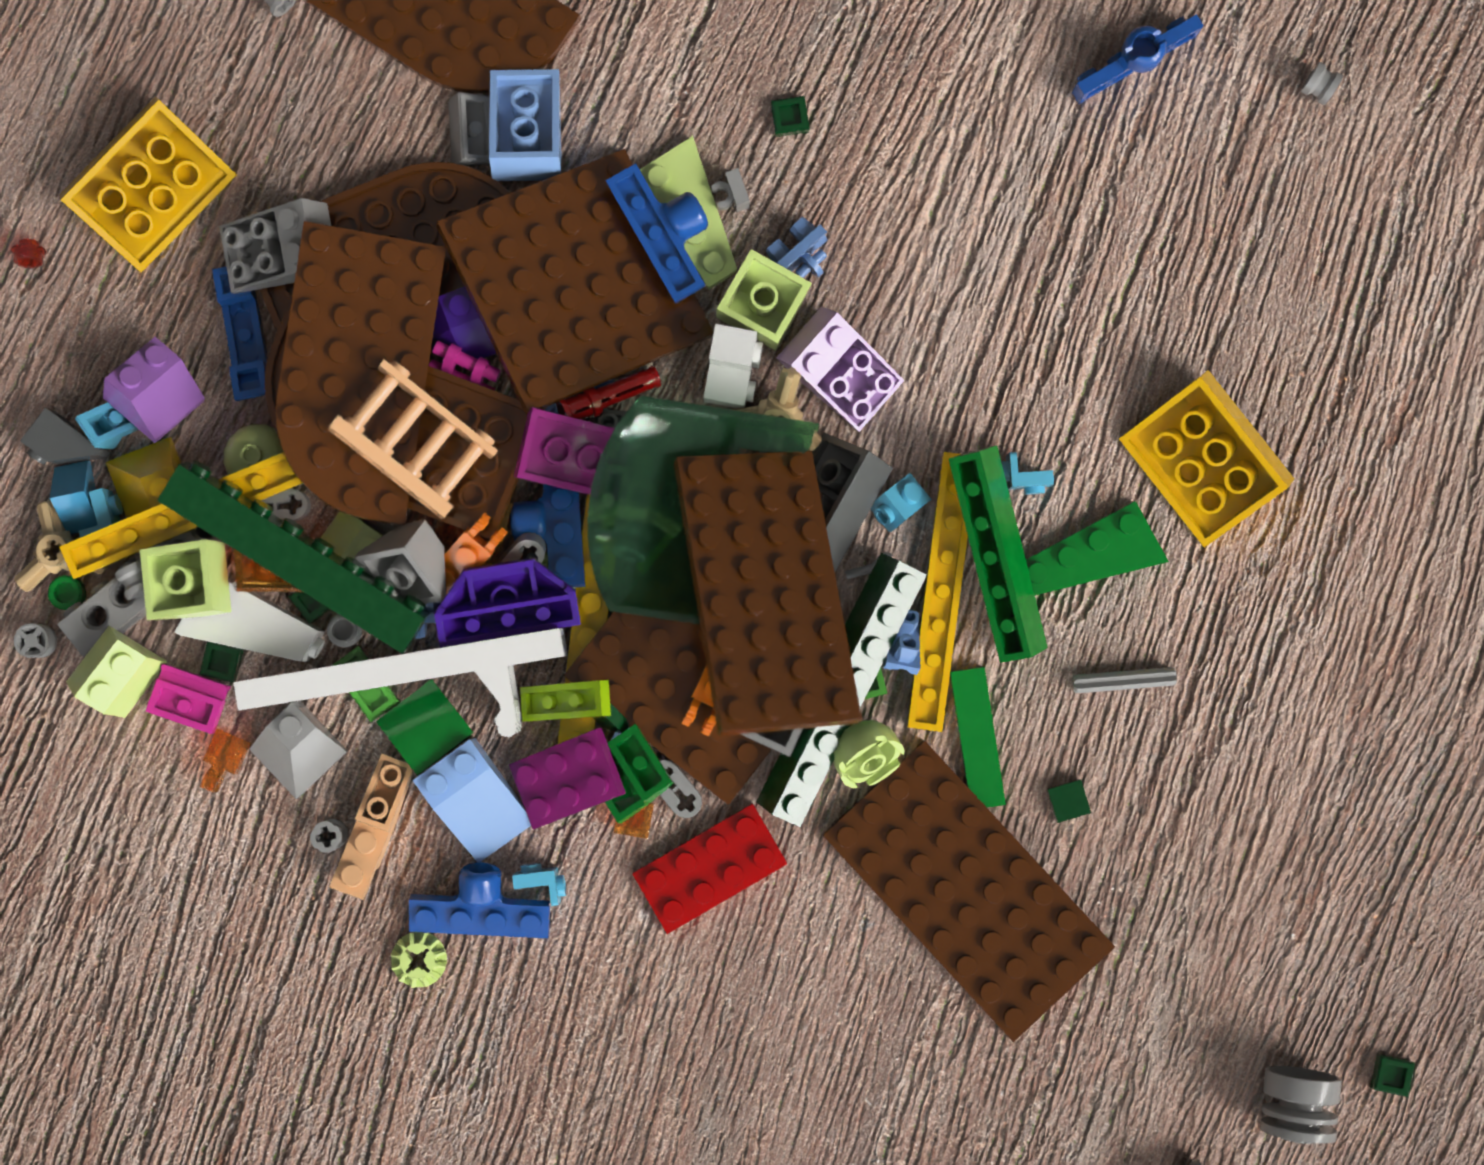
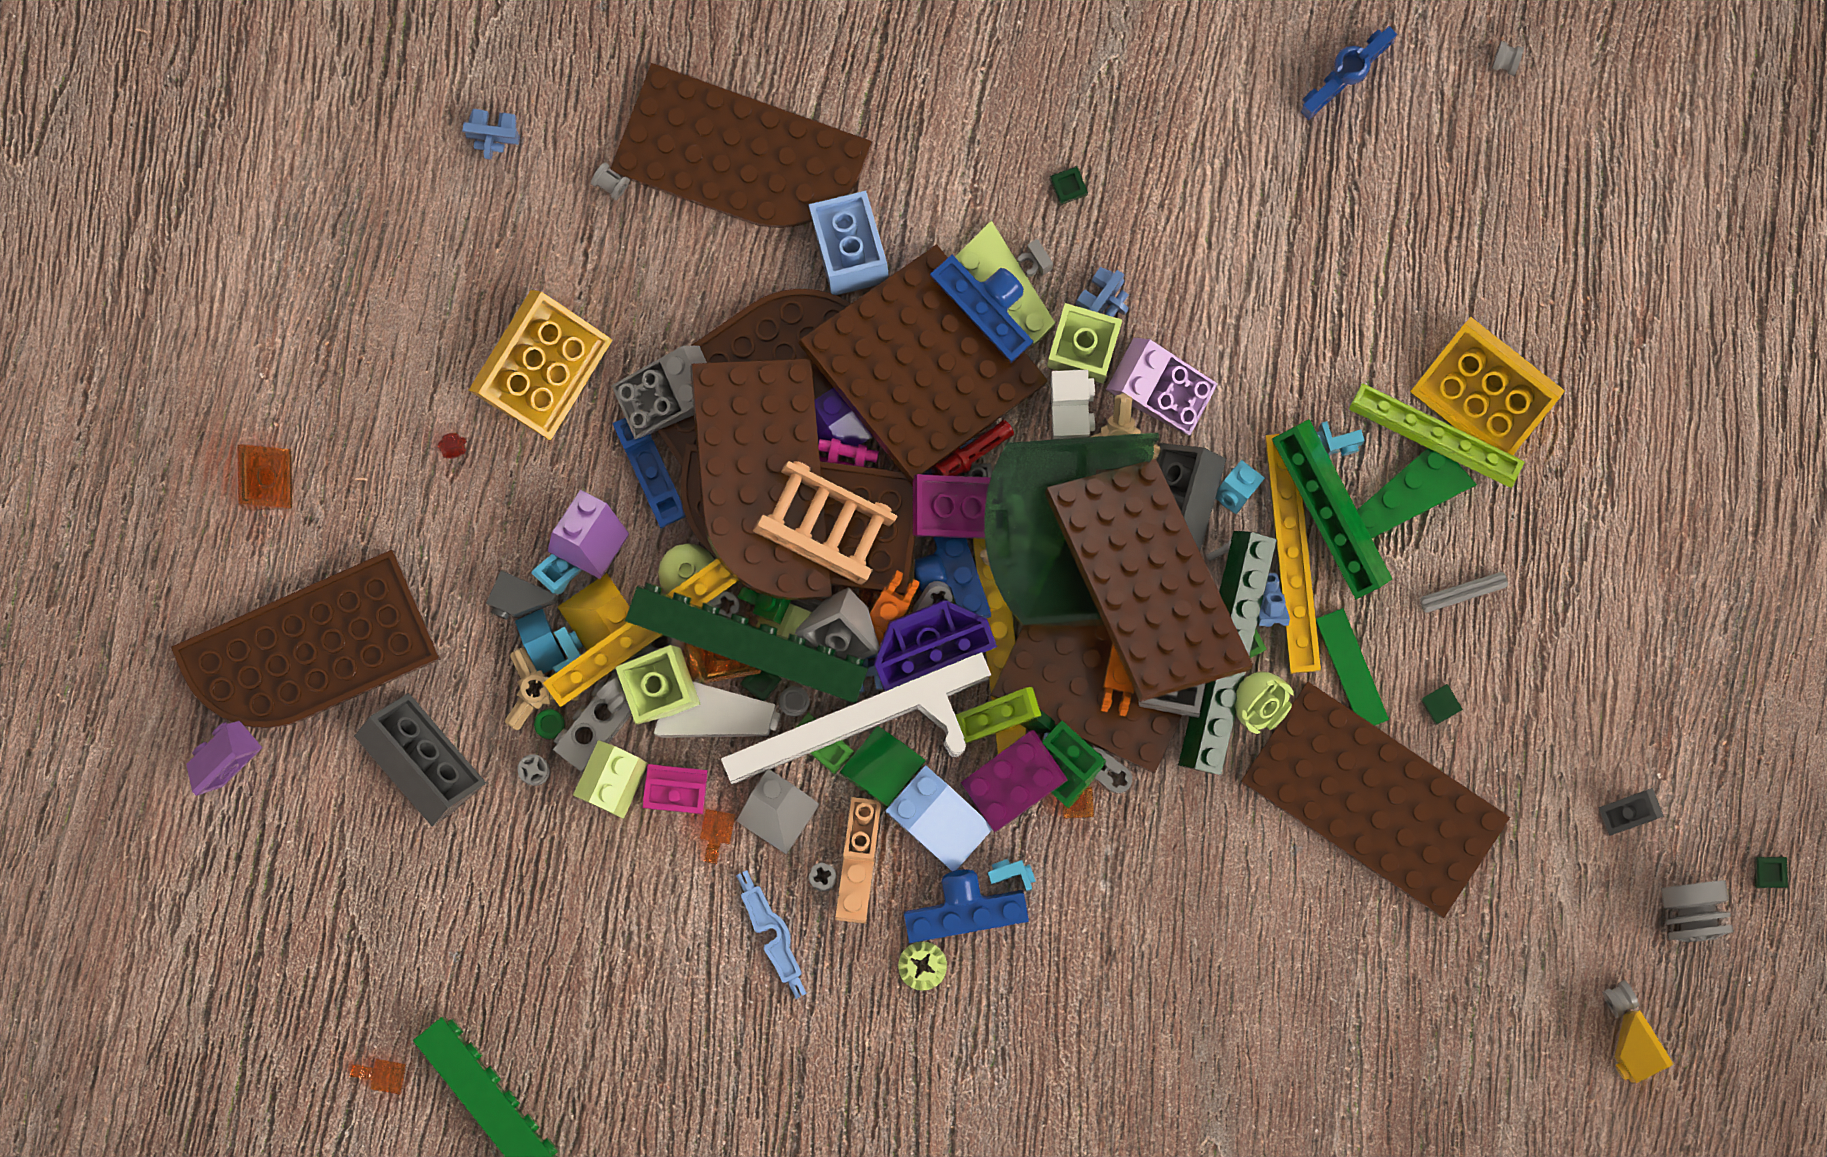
camera: 15 degrees left, 5 degrees down
(221, 662) = (695, 752): dark green tile -> none
(261, 905) = (779, 948): none -> light blue piece
(334, 520) = (765, 606): none -> green plate
(469, 129) = (801, 257): light grey slope -> none
(709, 868) = (1151, 831): red plate -> none
(1137, 496) = (1436, 435): none -> lime tile
(1253, 972) = (1631, 811): none -> dark grey slope

